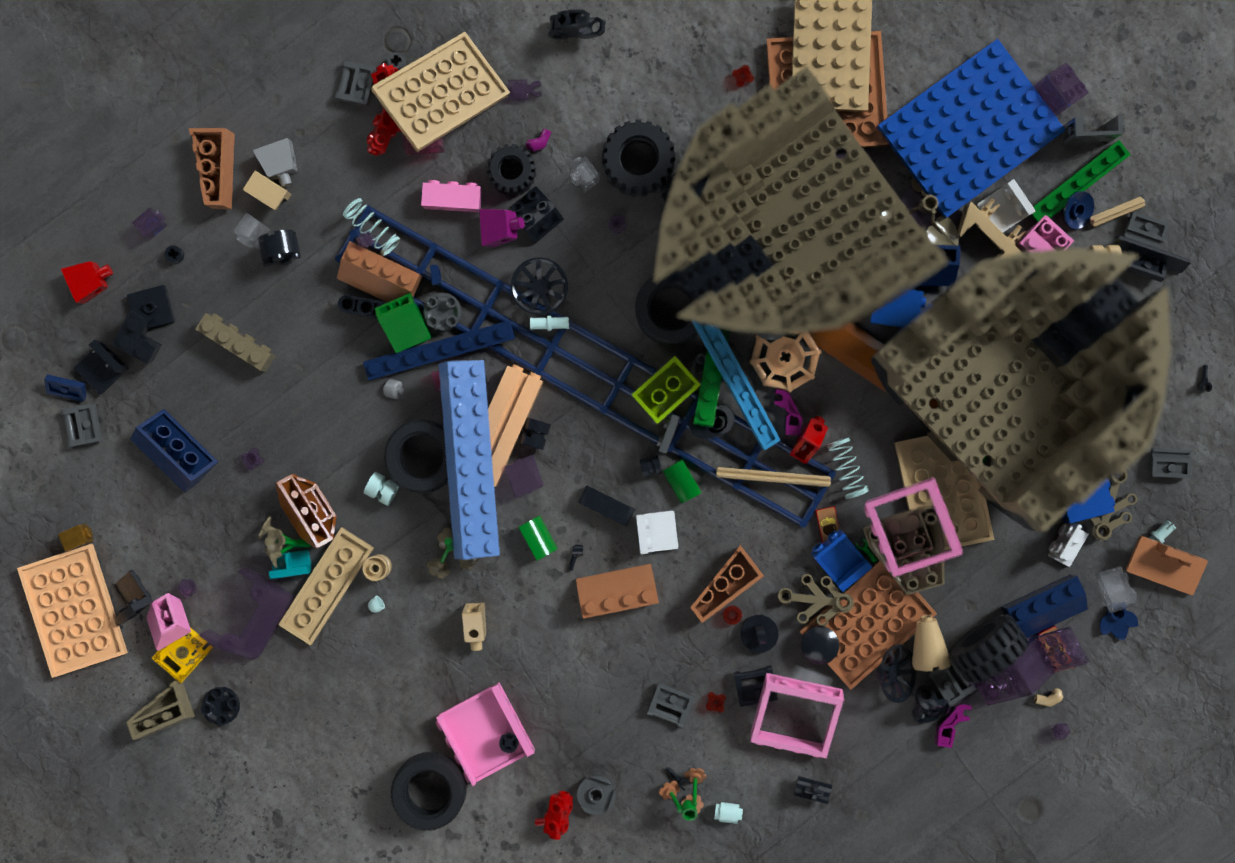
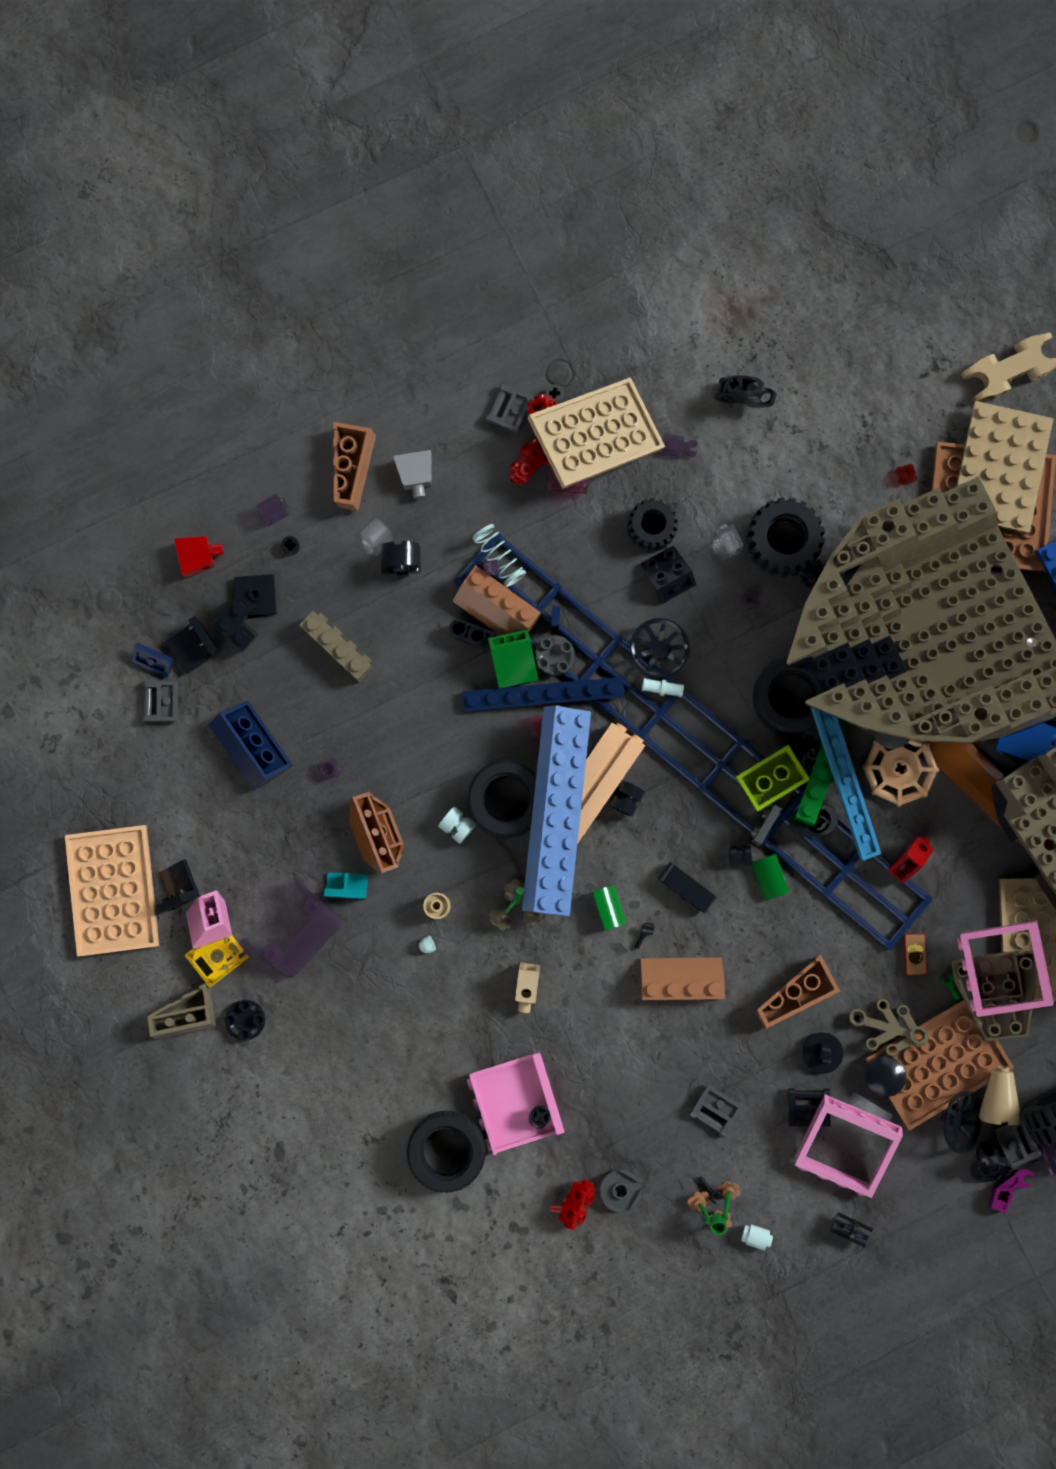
camera: 10 degrees right, 5 degrees down
(76, 537) = (132, 815): pearl gold brick -> none
(187, 587) = (235, 889): clear purple plate -> none
(266, 190) = (398, 499): tan panel -> none
(276, 540) = (339, 860): dark tan plant -> none
(326, 586) = (379, 915): tan plate -> none
(393, 389) = (487, 725): light grey piece -> none
(451, 196) = (585, 540): bright pink brick -> none
(499, 226) = (629, 579): magenta torso -> none
(523, 476) = (606, 840): clear purple piece -> none
(539, 143) = (685, 503): magenta arm -> none
(657, 531) = (734, 924): white bracket -> none
(715, 697) = (767, 1122): clear red plate -> none
(732, 621) = (804, 1027): clear red plate -> none
(768, 476) = (866, 890): tan axle -> none
(790, 408) = (897, 825): magenta piece -> none
(840, 560) = (922, 991): blue panel -> none
(855, 493) = (950, 924): light aqua piece -> none

